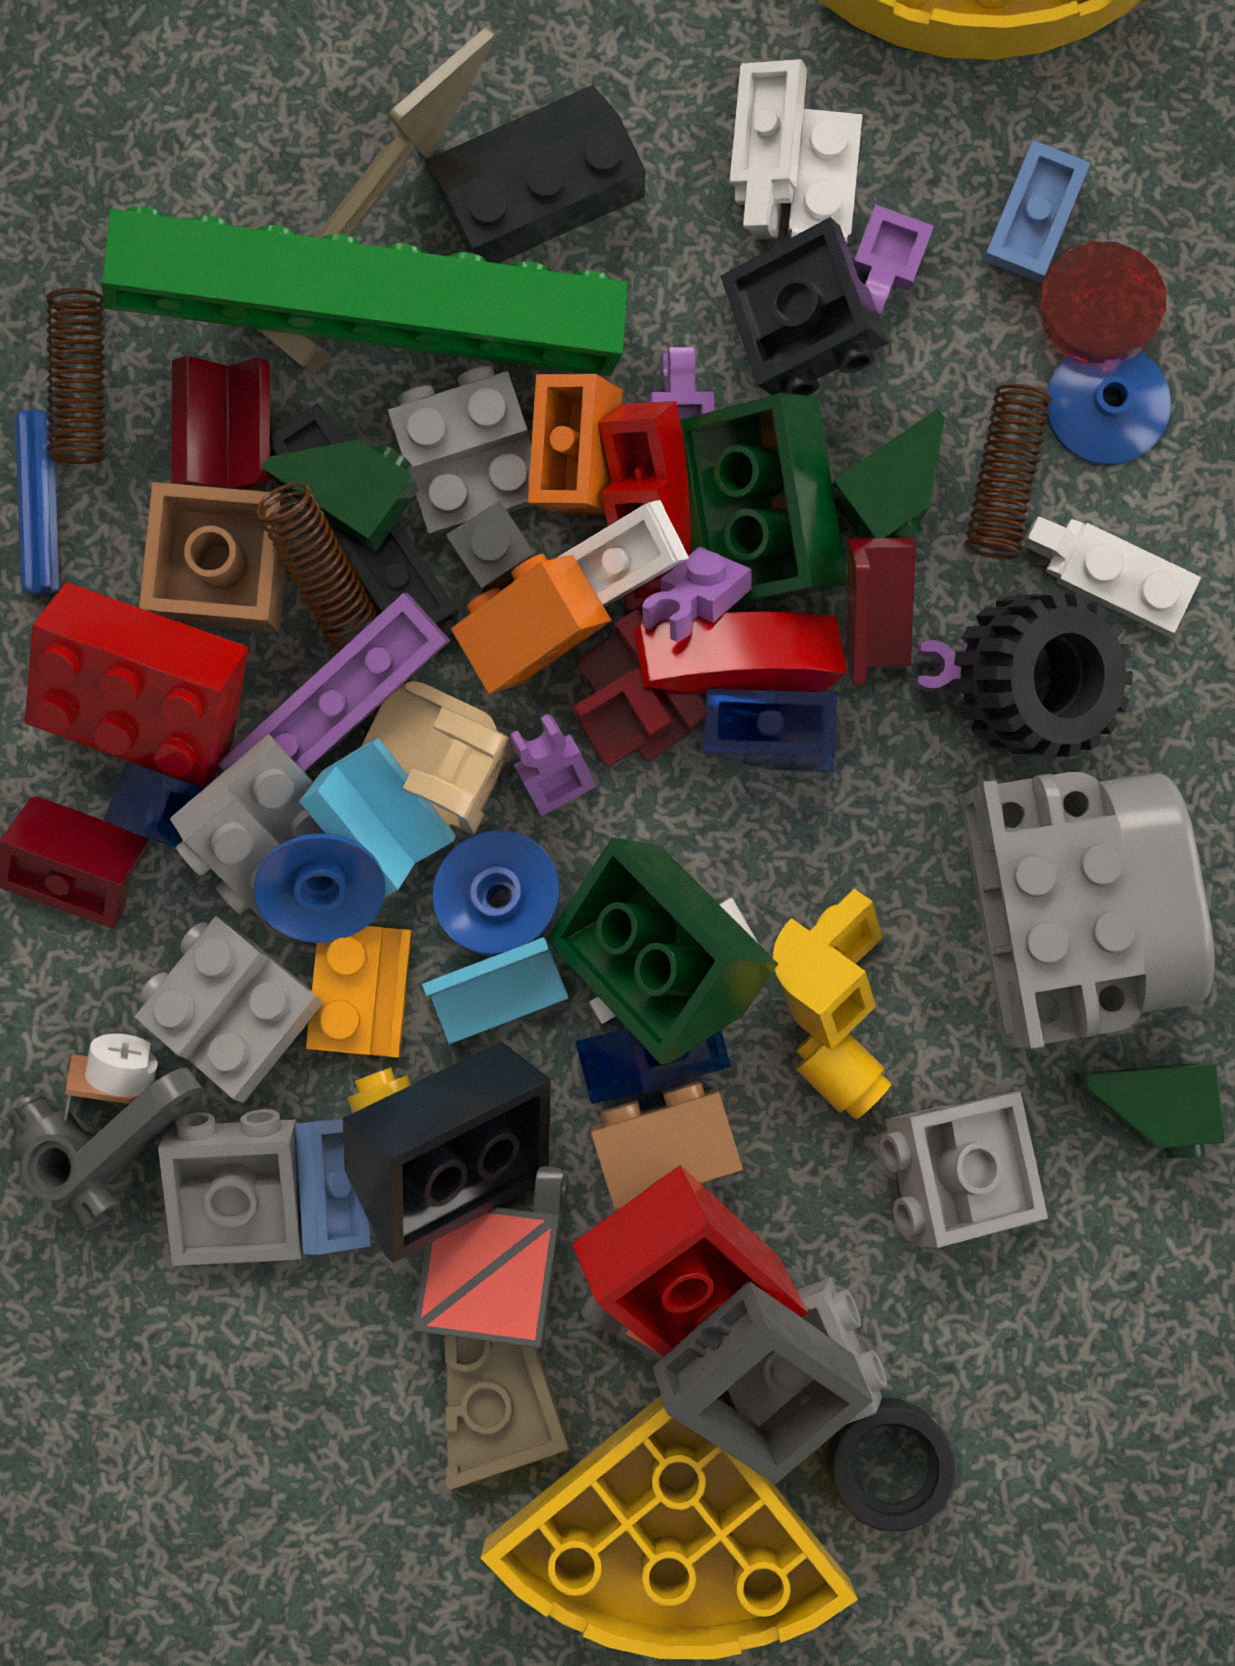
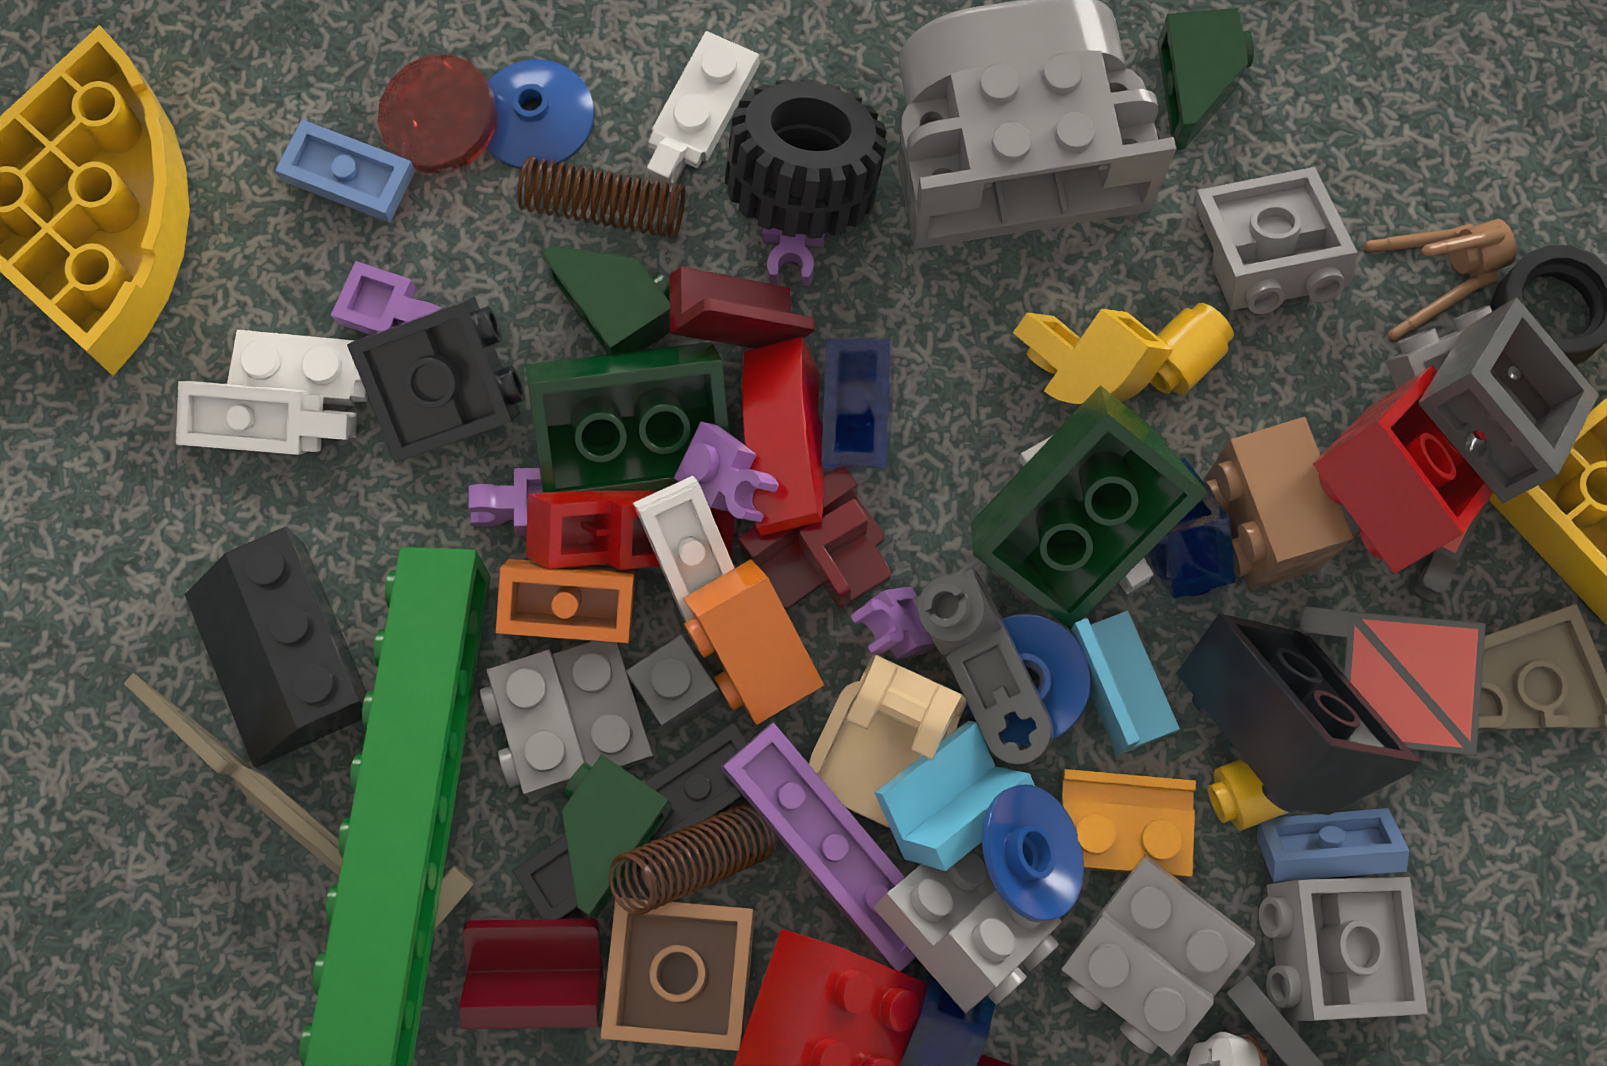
camera: 90 degrees left, 10 degrees down
(536, 840) = (985, 662): none -> dark grey piece
(955, 1384) = (1471, 250): none -> medium nougat plant

